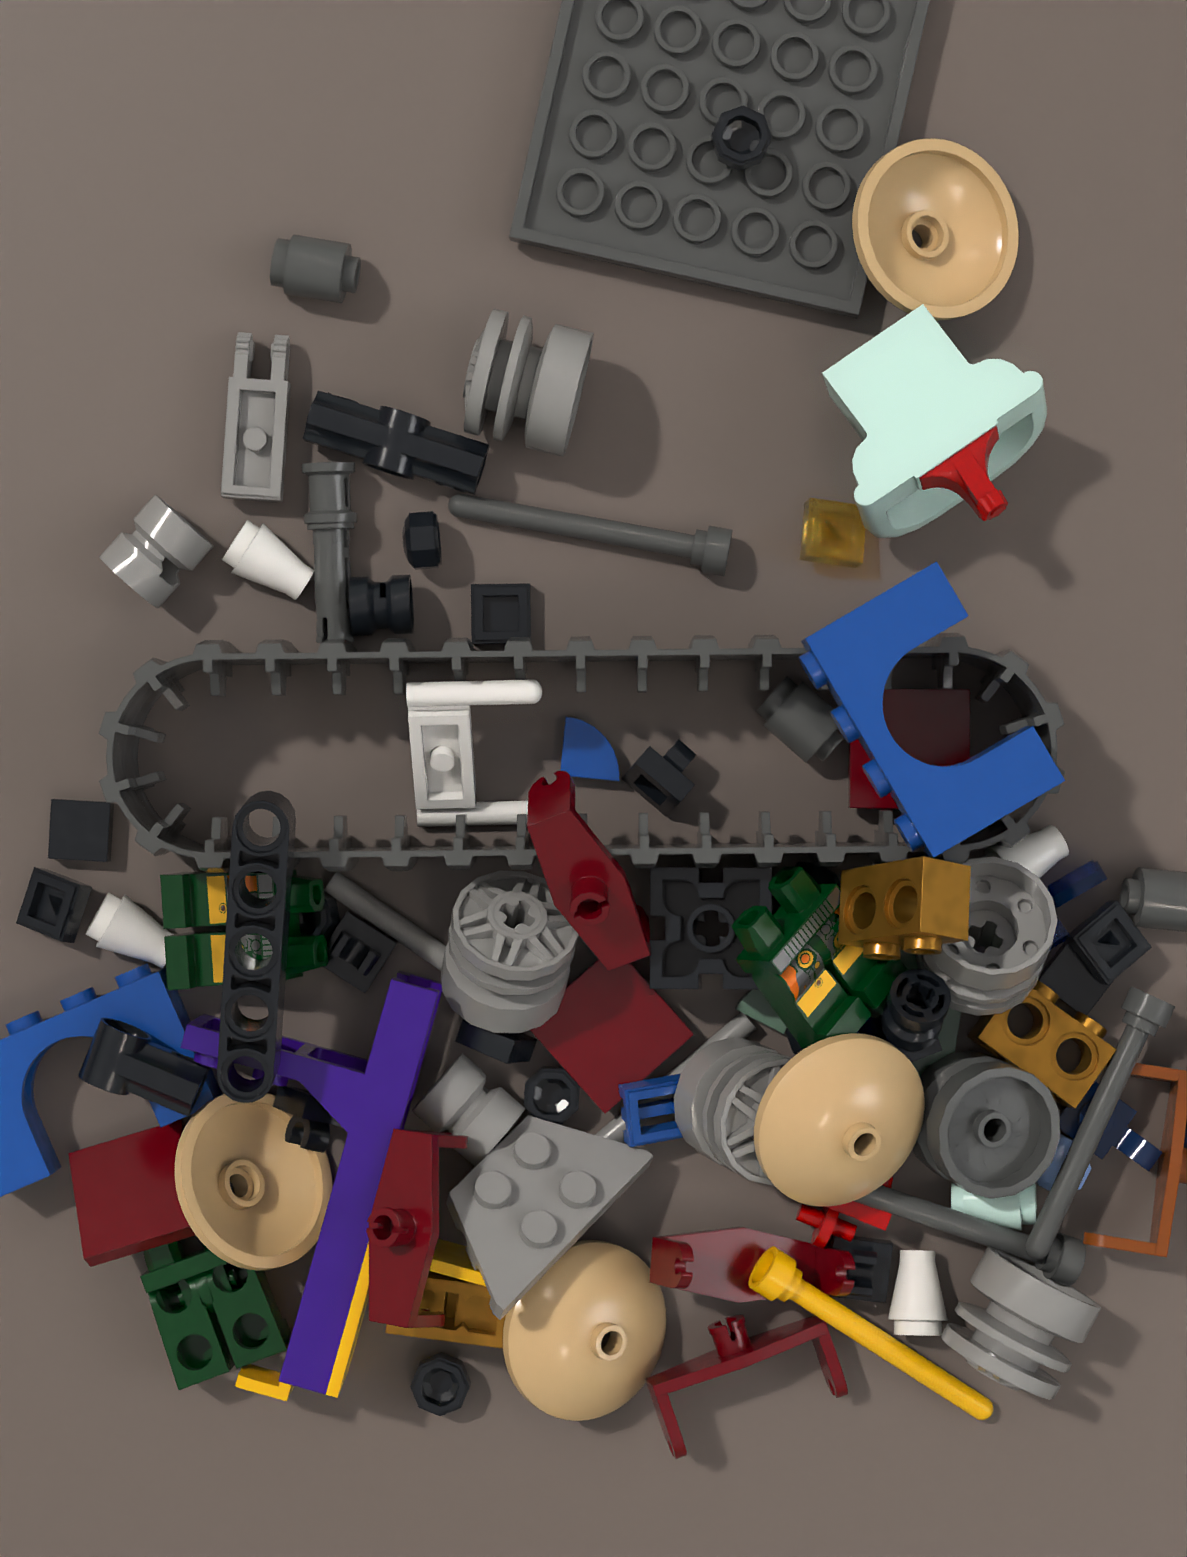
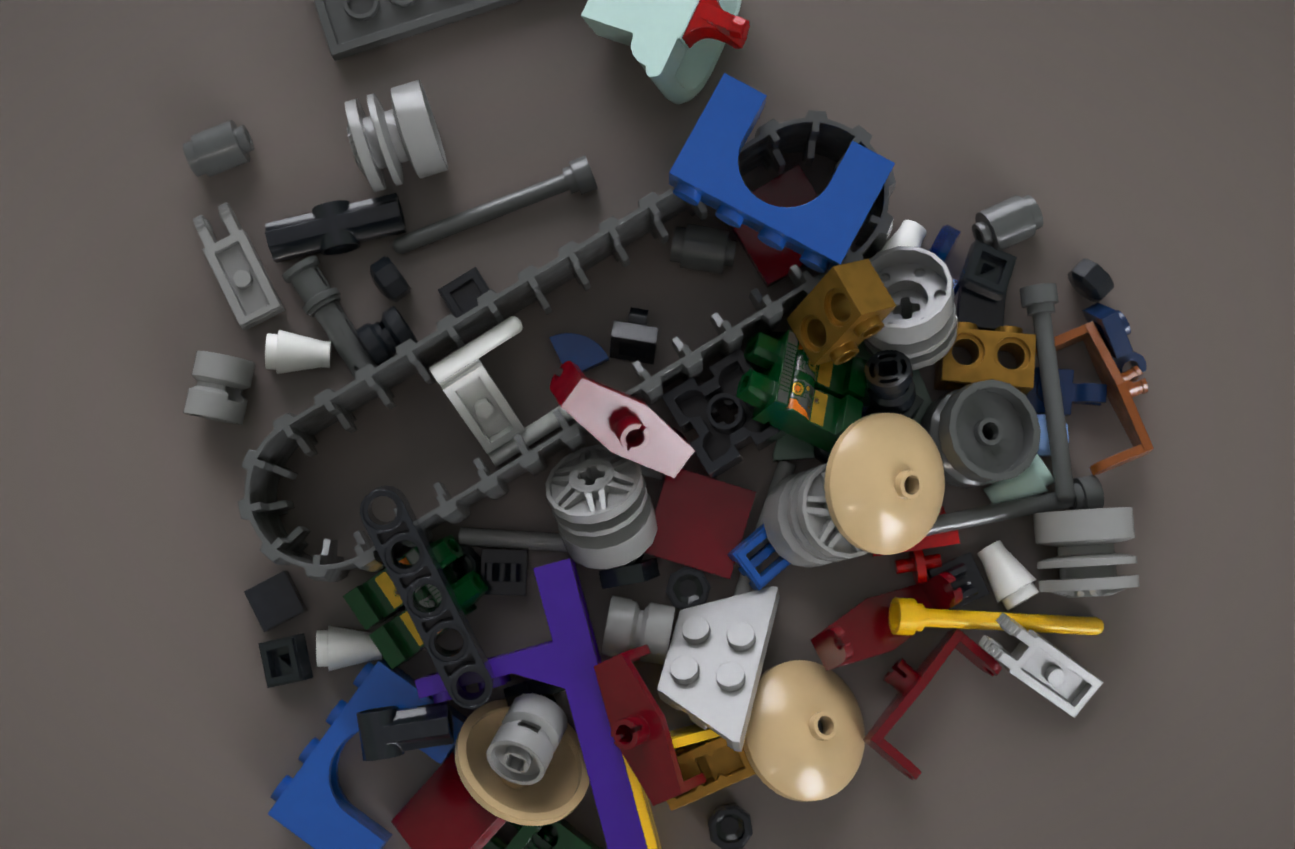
camera: 20 degrees left, 5 degrees down
(273, 1161) = (527, 739): none -> light grey wheel
(832, 533) = (651, 119): clear yellow tile -> none
(894, 1420) = (1044, 667): none -> light grey hinge

